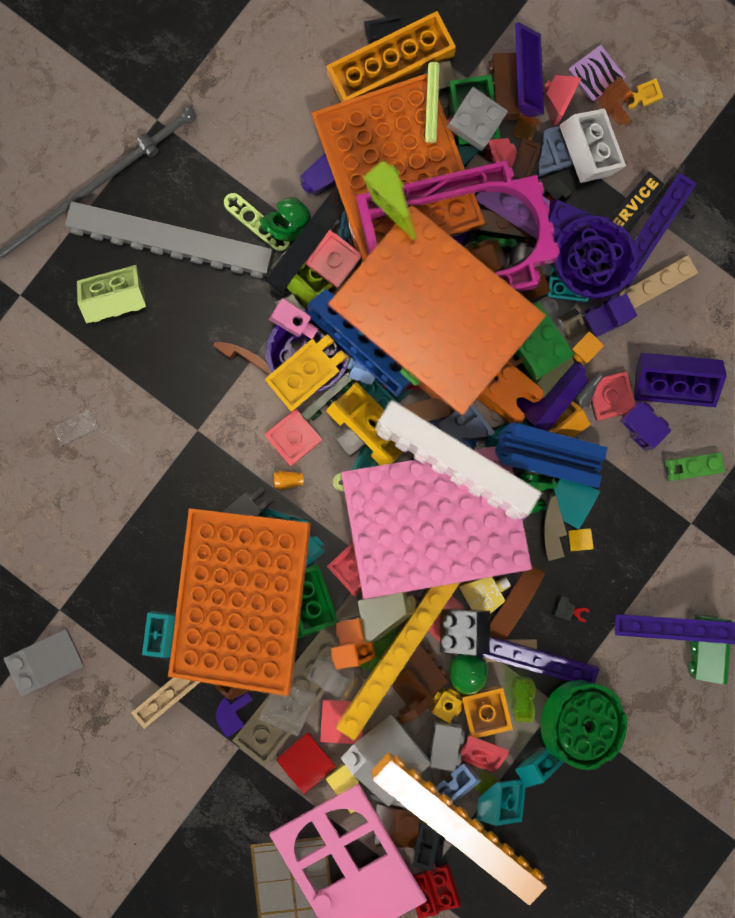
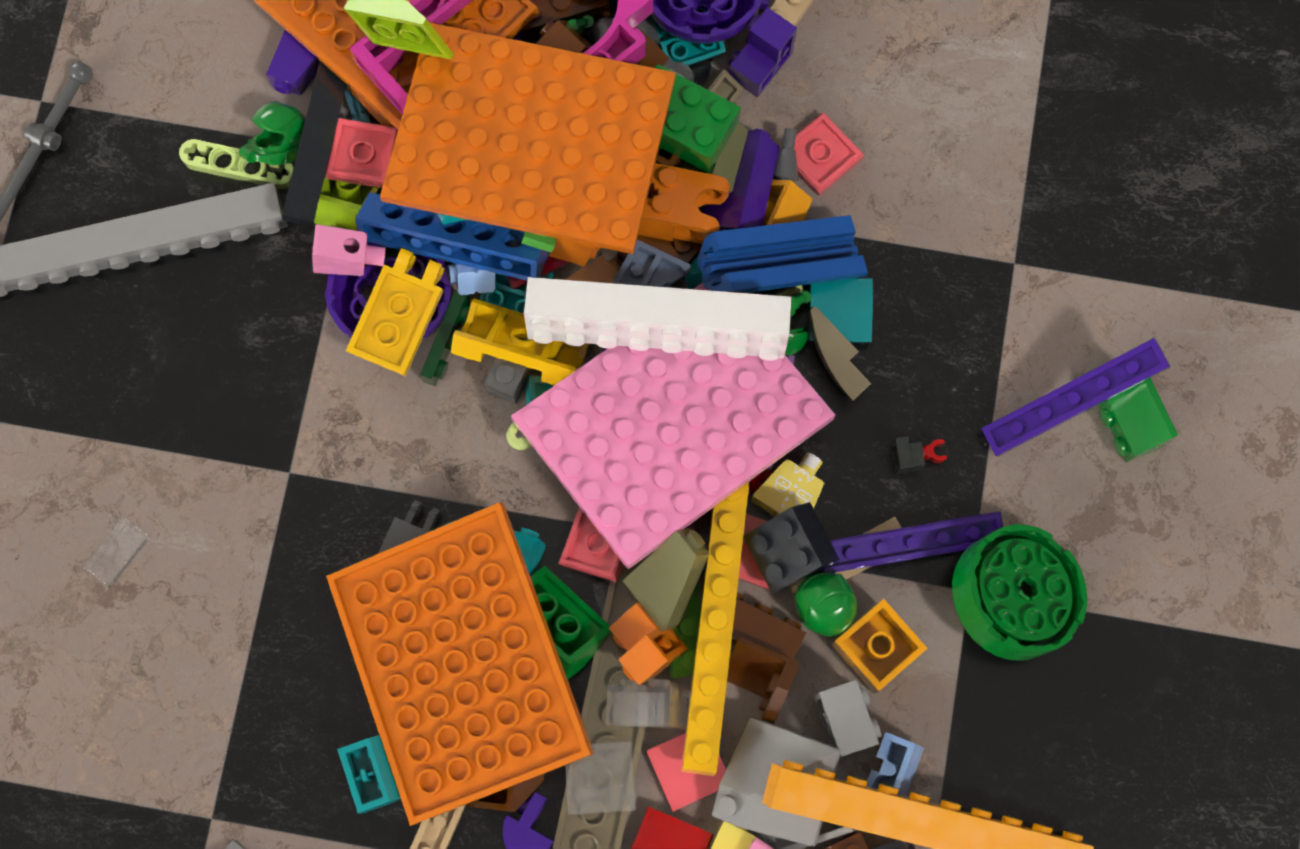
camera: 20 degrees left, 10 degrees down
(110, 294) = (82, 350): yellowish green slope -> none
(231, 350) = (282, 342): dark orange slope -> none
(285, 480) = (445, 474): light orange cone -> none
(293, 437) = (425, 415): coral tile -> none
(446, 711) = (831, 662): yellow brick -> none
(482, 754) = (906, 706): coral tile -> none
(487, 782) = (936, 749): clear neon green tile -> none
(502, 803) = (969, 761): teal slope -> none
(516, 603) = (840, 479): dark orange slope -> none
(524, 693) = (915, 595): clear neon green brick -> none
(538, 768) = (992, 687): teal slope -> none
(580, 539) = (881, 355): yellow slope -> none
(586, 348) = (756, 107): light orange brick -> none
(645, 426) = (884, 162): dark purple brick -> none
(679, 379) = (896, 89): dark purple slope -> none
(695, 466) = (978, 188): bright green plate -> none

